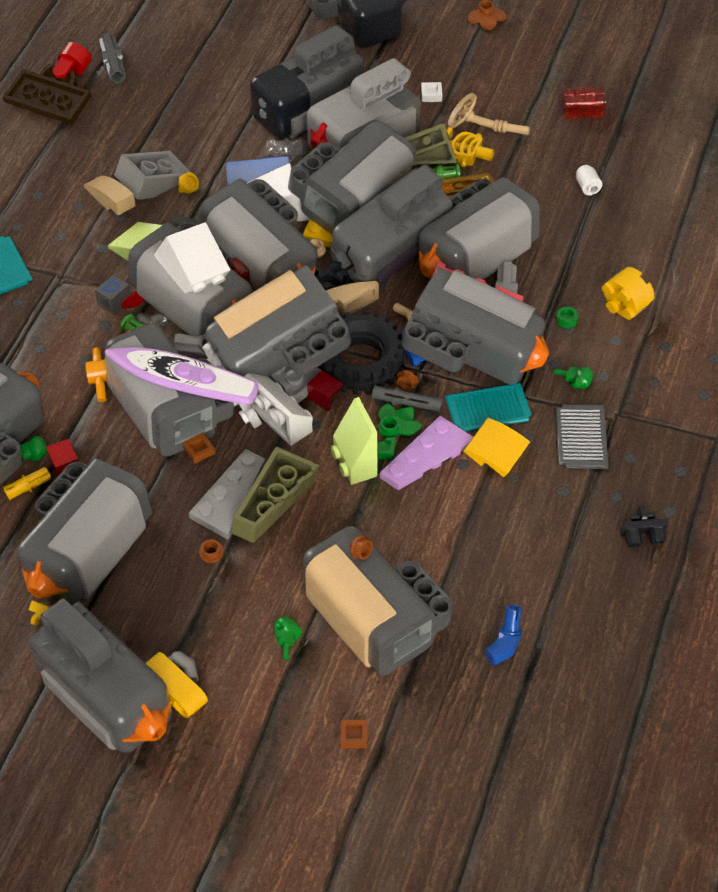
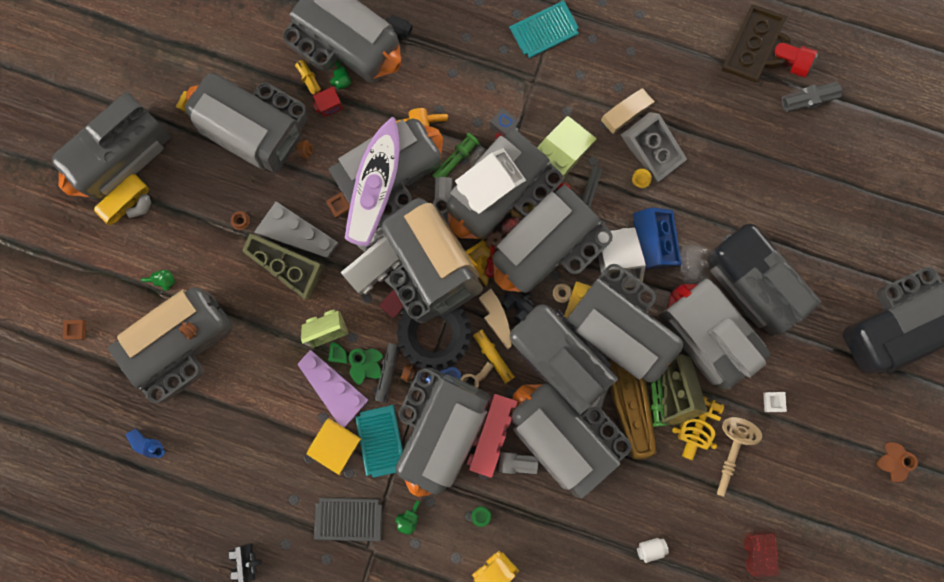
camera: 90 degrees right, 30 degrees up
(387, 304) = (494, 357): none -> yellow pin

